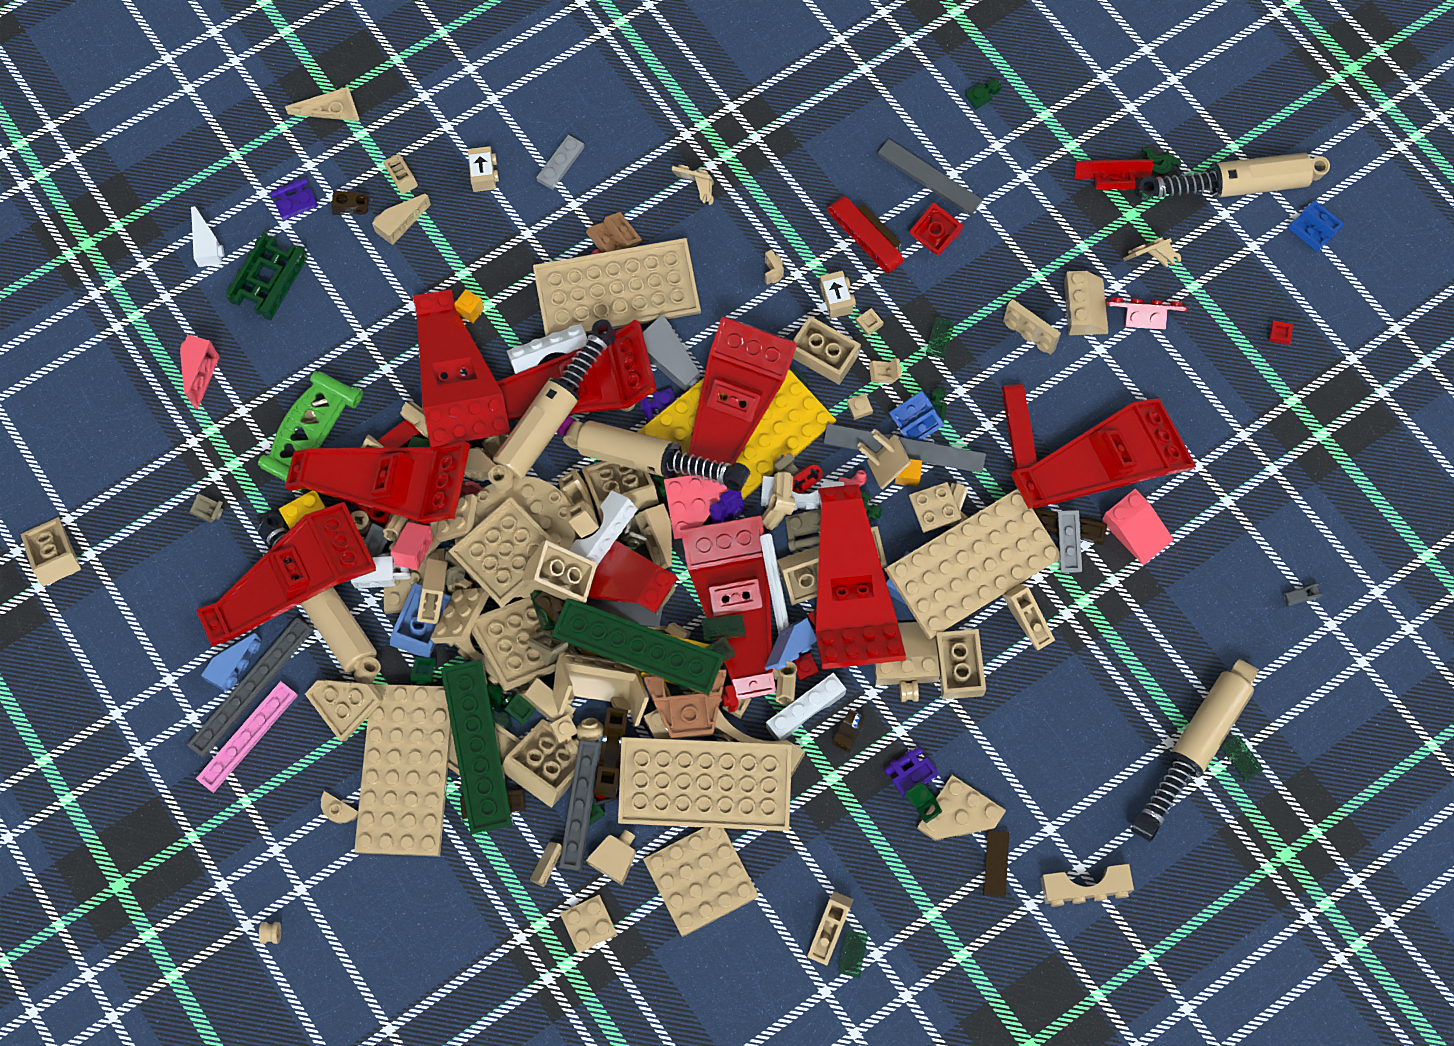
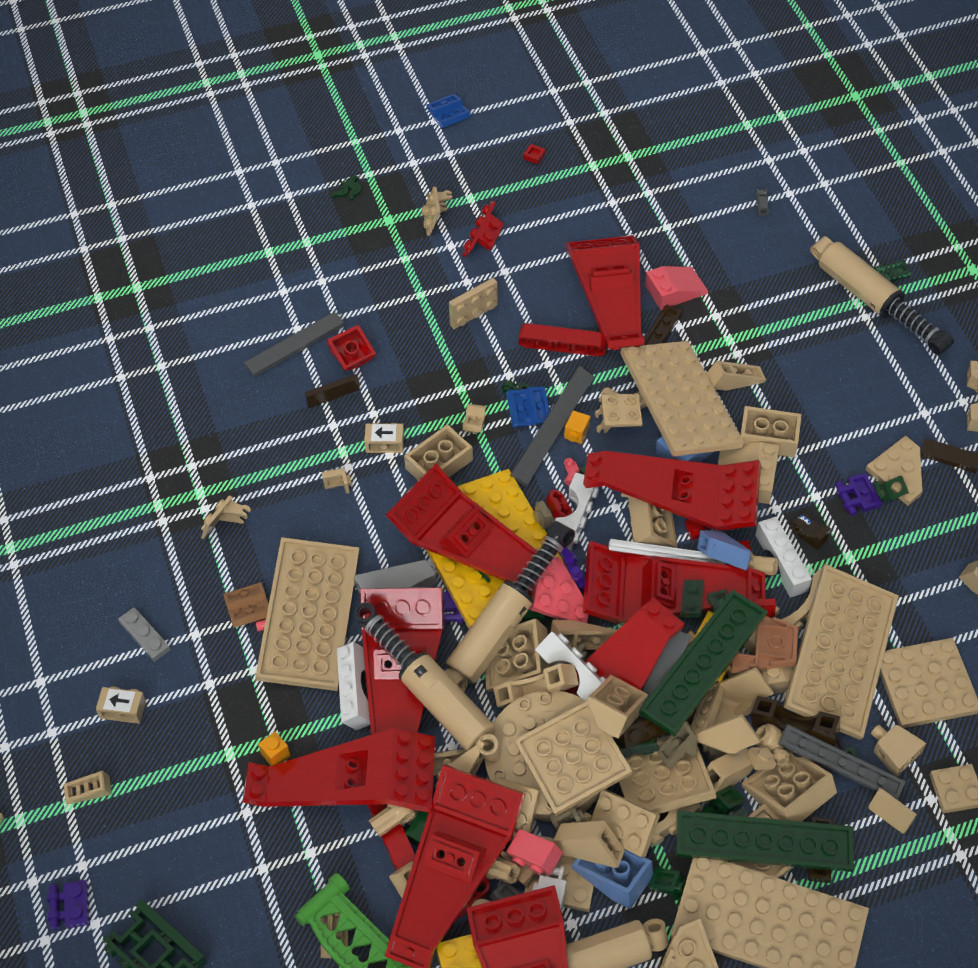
camera: 75 degrees left, 15 degrees down
(349, 202) = (101, 846): dark brown leg -> none
(396, 220) = (143, 800): tan slope -> none
(780, 502) = (574, 517): tan piece -> none
(801, 525) = (604, 514): dark tan plate -> none
(859, 406) = (499, 449): tan plate -> none
(865, 234) = (332, 402): red beam -> none
(869, 322) = (420, 421): tan plate -> none
(888, 461) = (565, 434): tan plate -> none
(909, 691) = (783, 476): tan wheel -> none
(940, 338) = (456, 373): clear green plate -> none
(980, 96) = (229, 288): dark green plate -> none
(1069, 541) = (677, 330): light grey plate -> none
(1085, 303) = (460, 269): tan slope -> none
(1113, 173) = (349, 218): red bracket -> none
(1241, 177) = (389, 140): tan piece -> none

